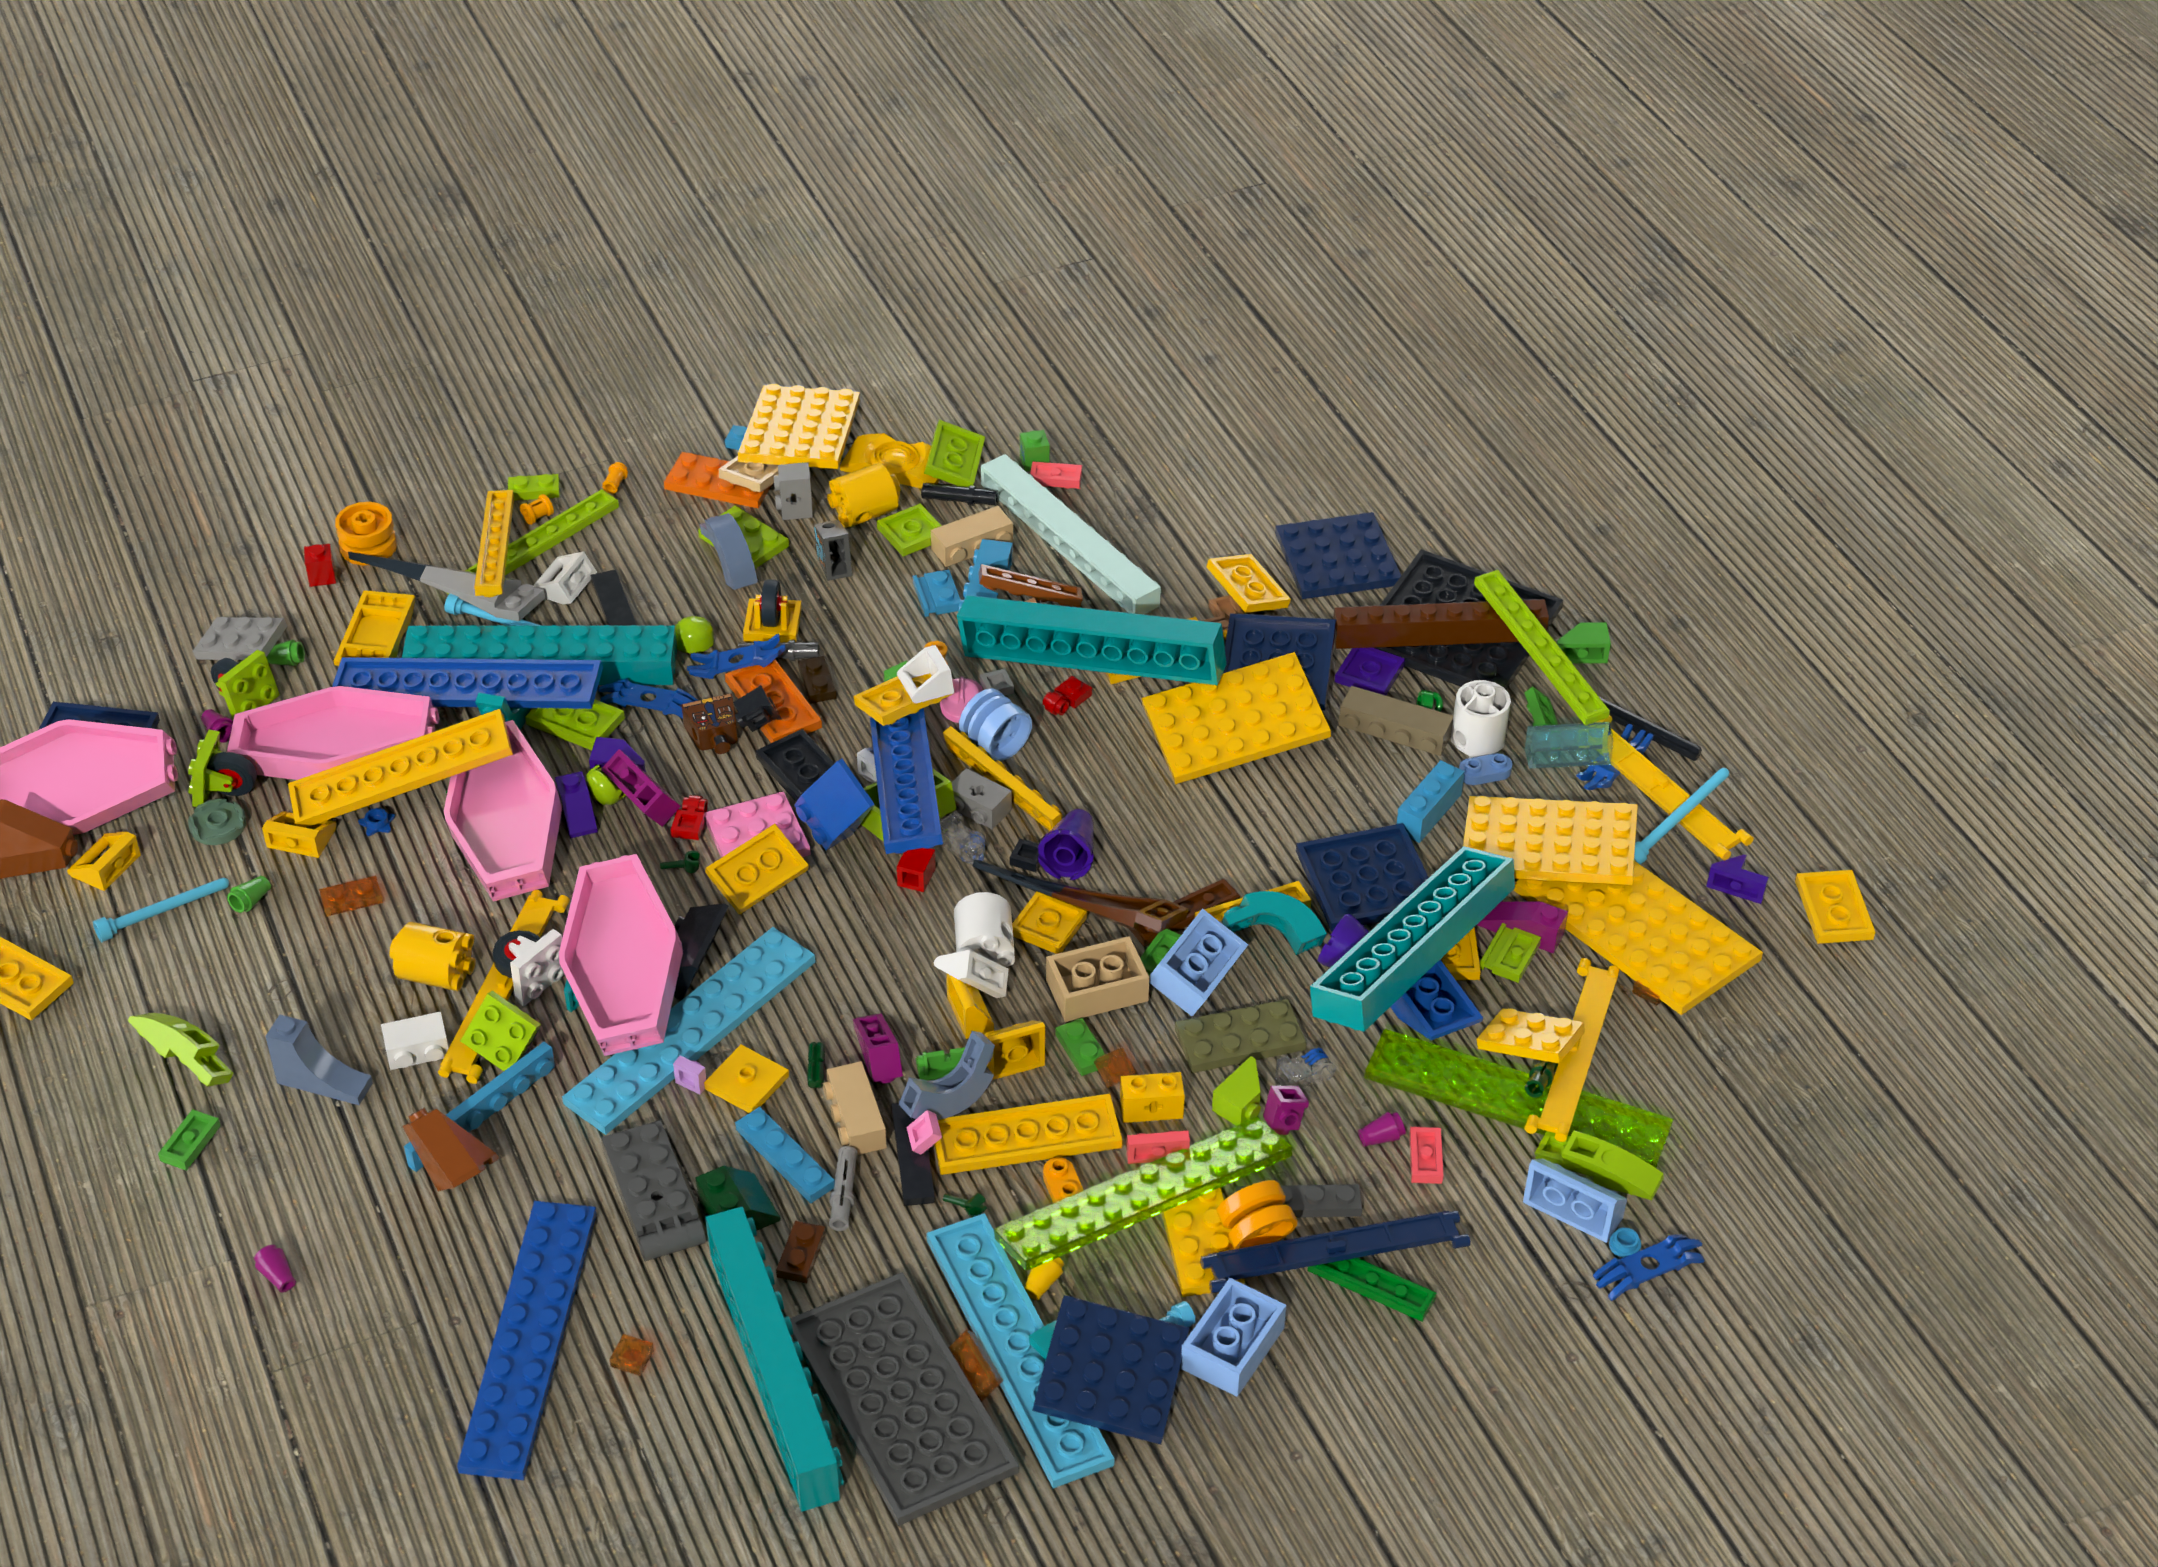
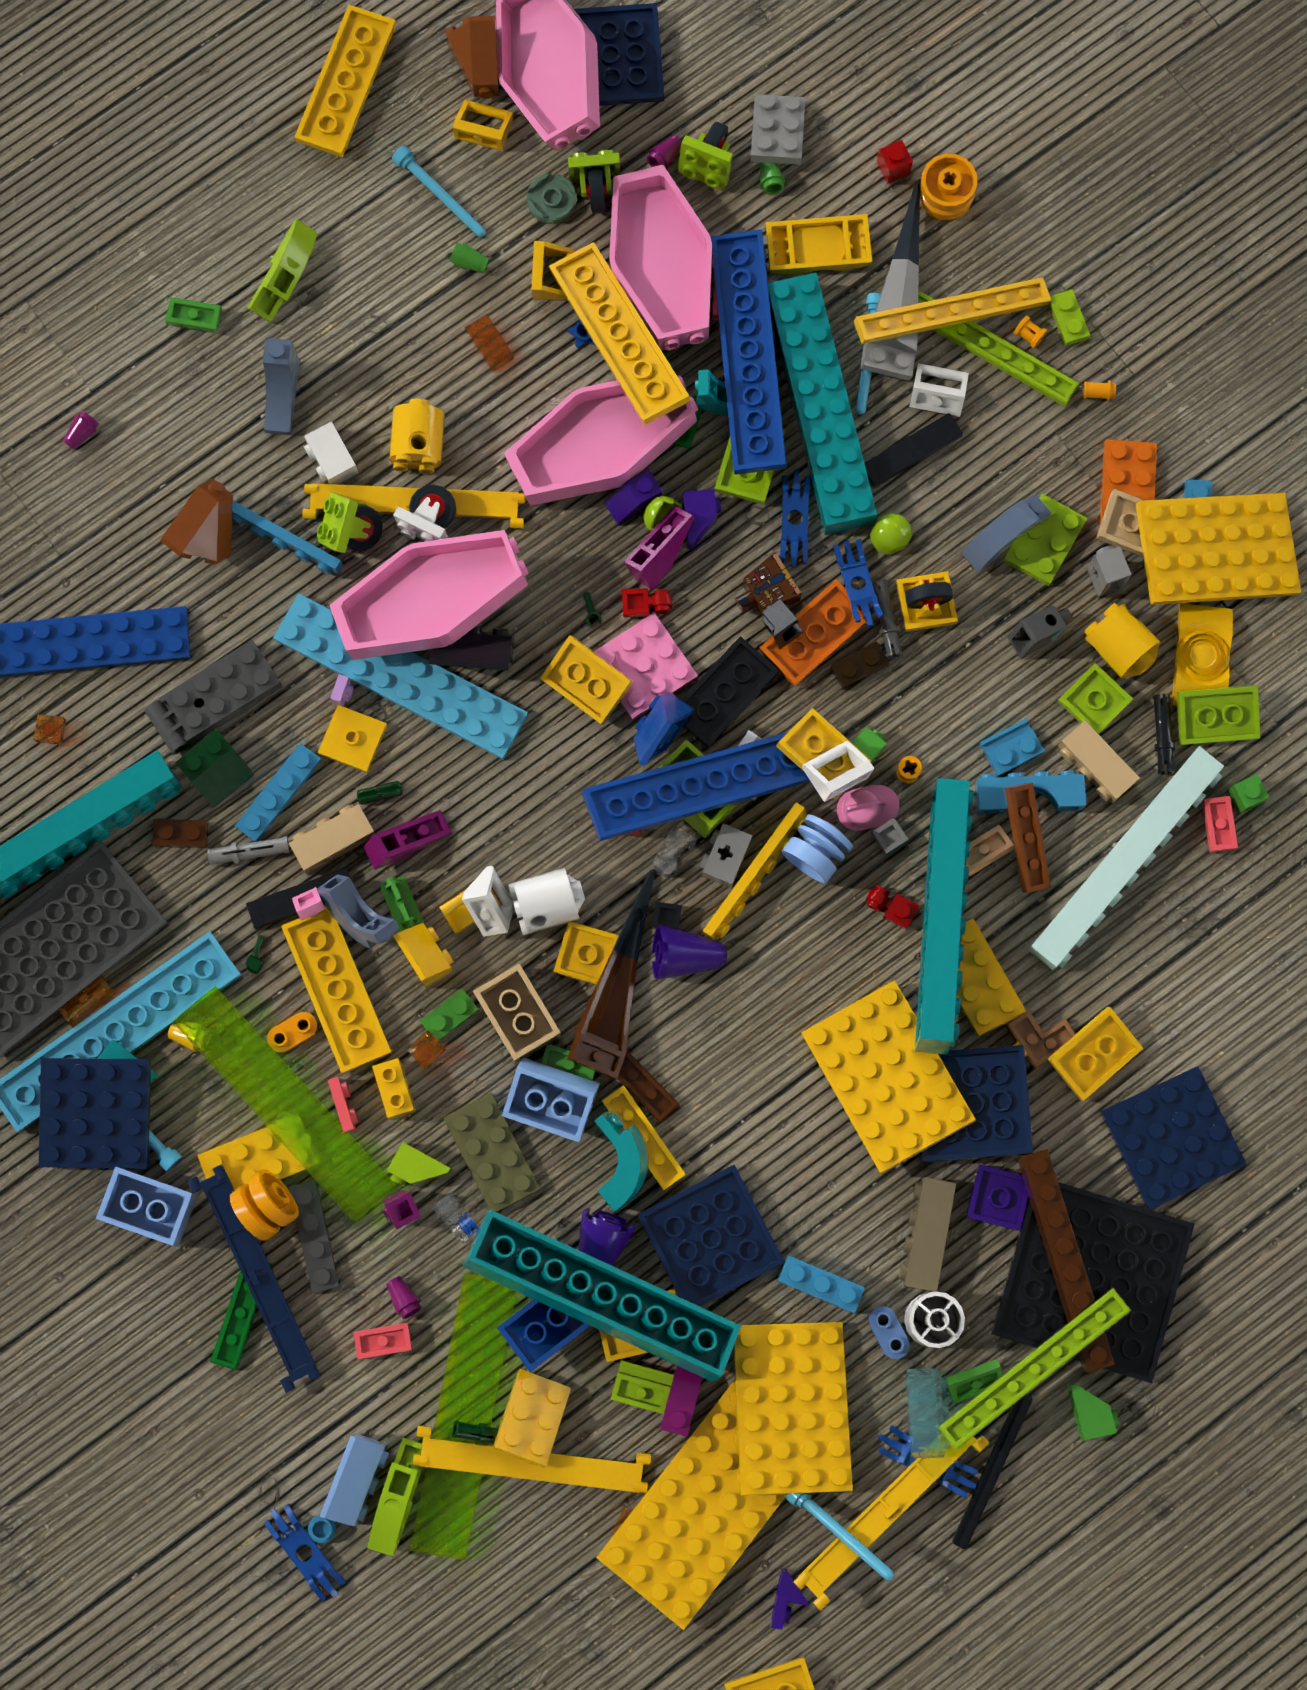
camera: 80 degrees right, 35 degrees up
(1425, 699) = (961, 1260): green tile -> none

